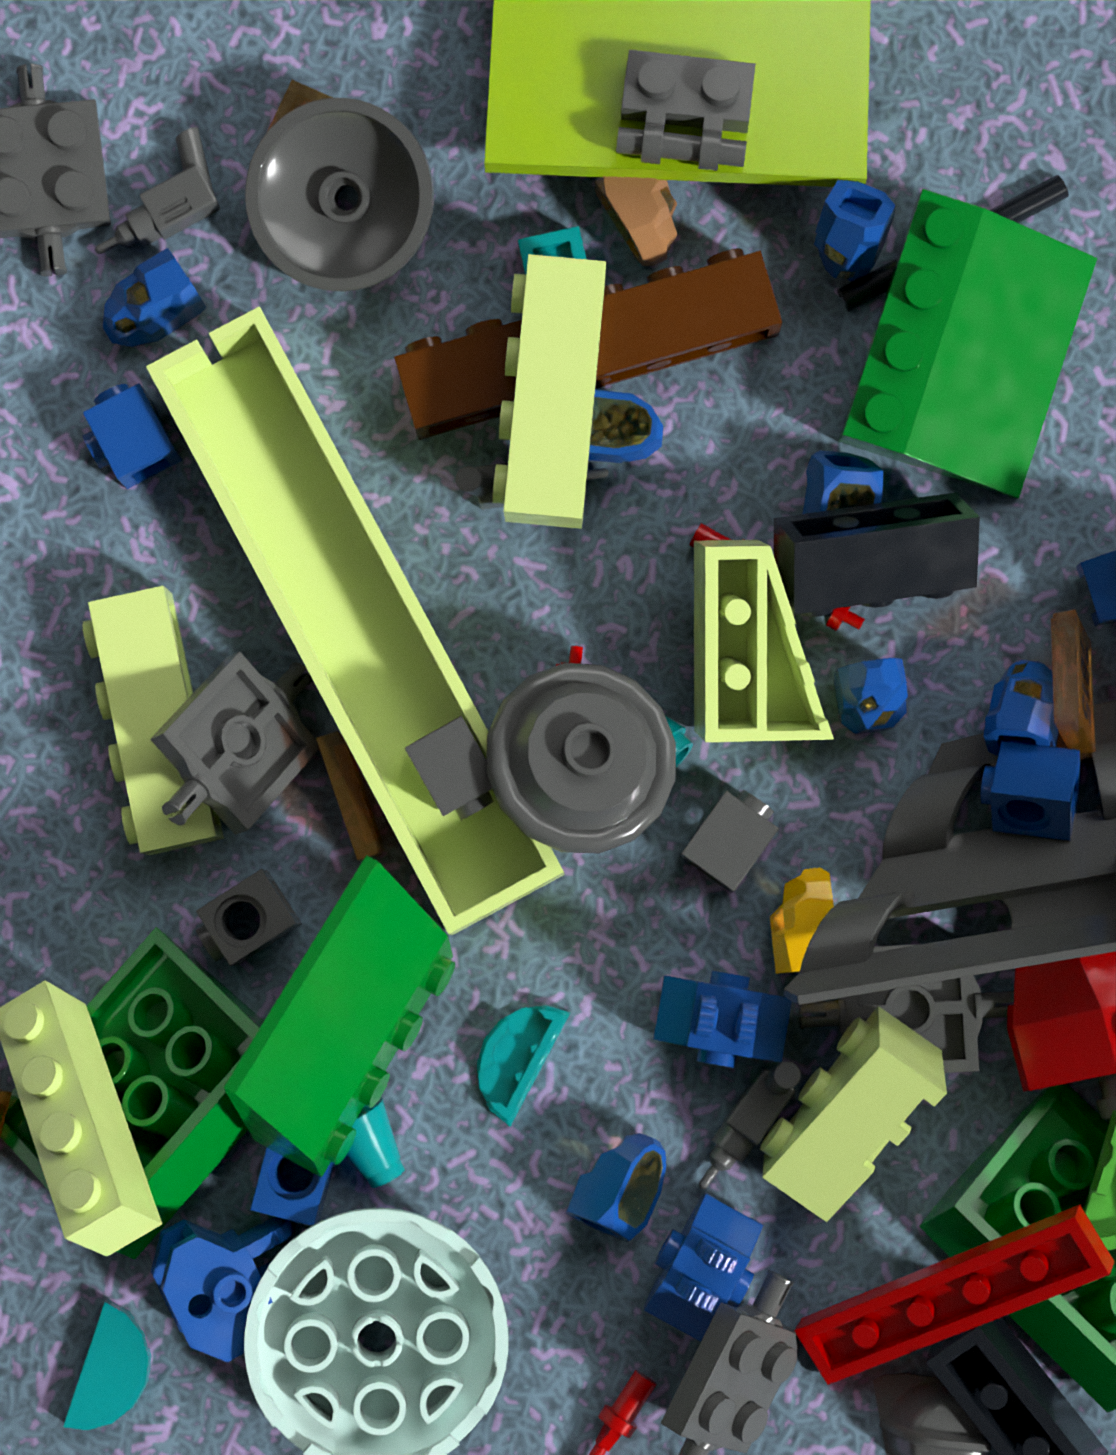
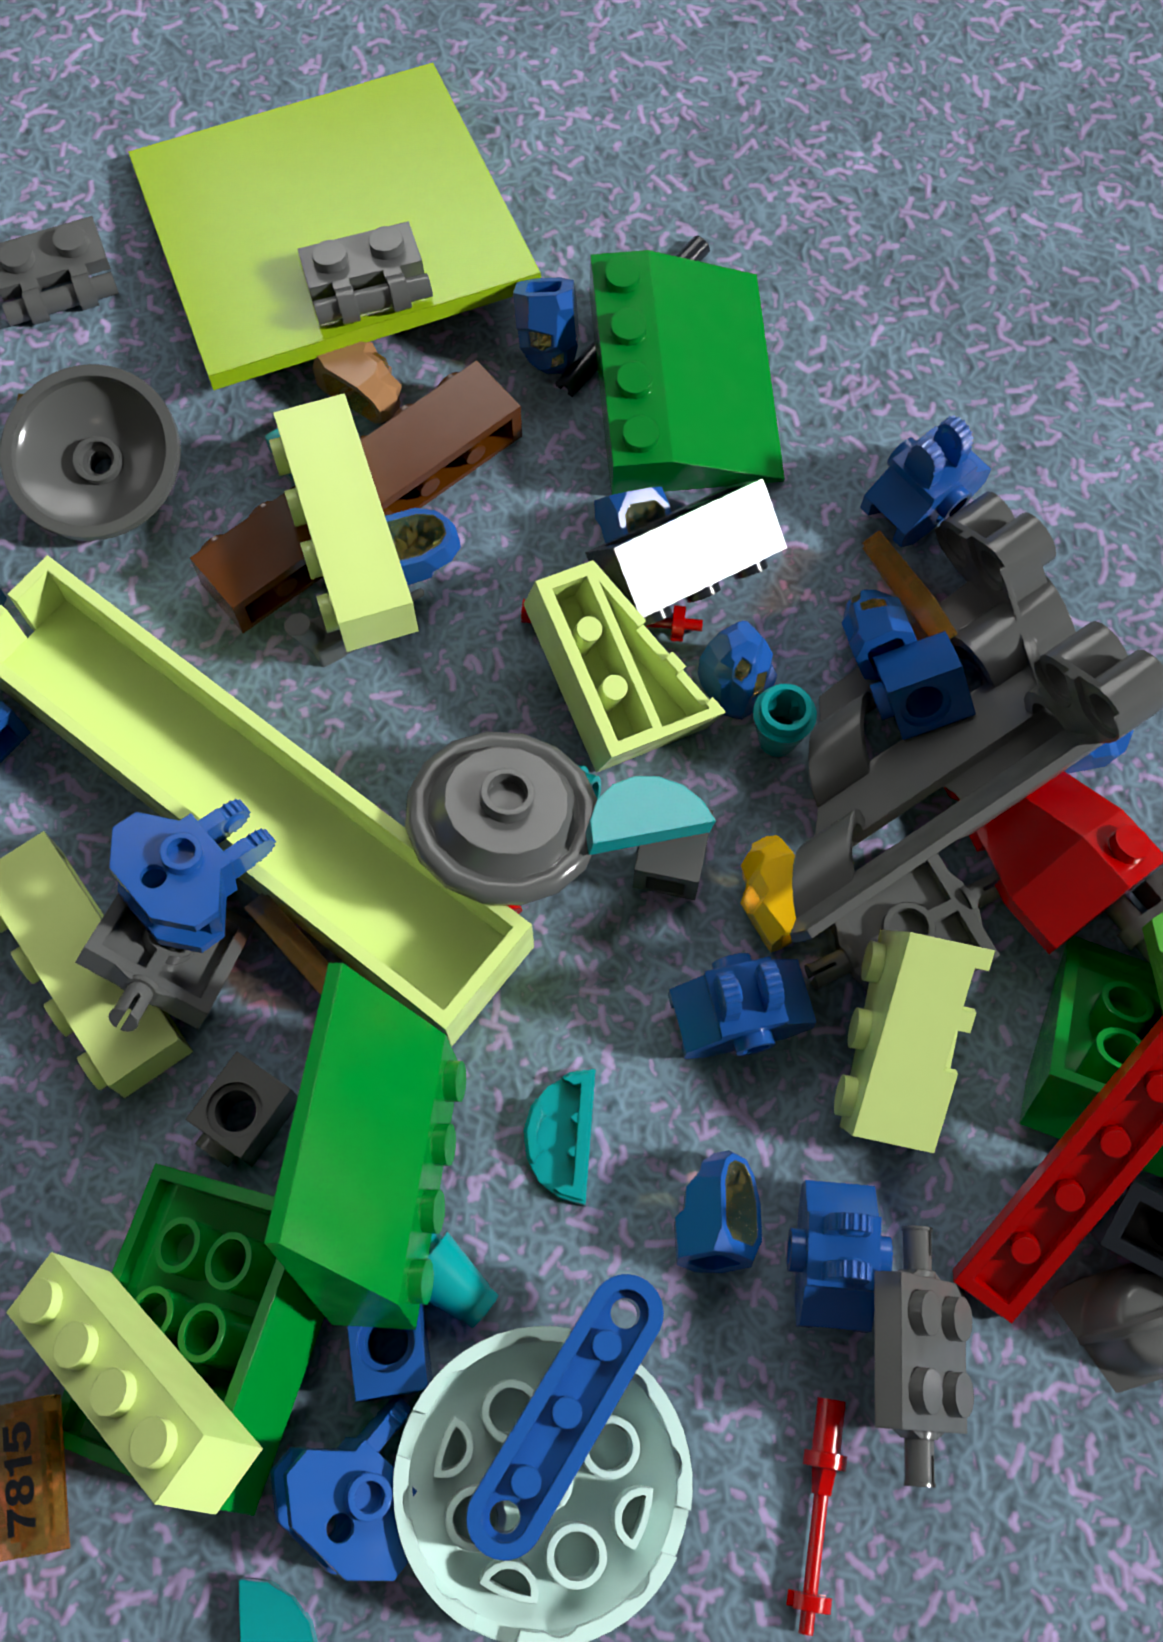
camera: 30 degrees left, 15 degrees down
(281, 692) = (178, 873): none -> blue hinge
(415, 1300) = (564, 1417): none -> blue plate
(452, 769) = (385, 879): dark grey brick -> none
(710, 810) = (644, 813): none -> tile
(751, 1117) = (813, 1088): dark grey piece -> none
(903, 756) = (783, 718): none -> teal cone

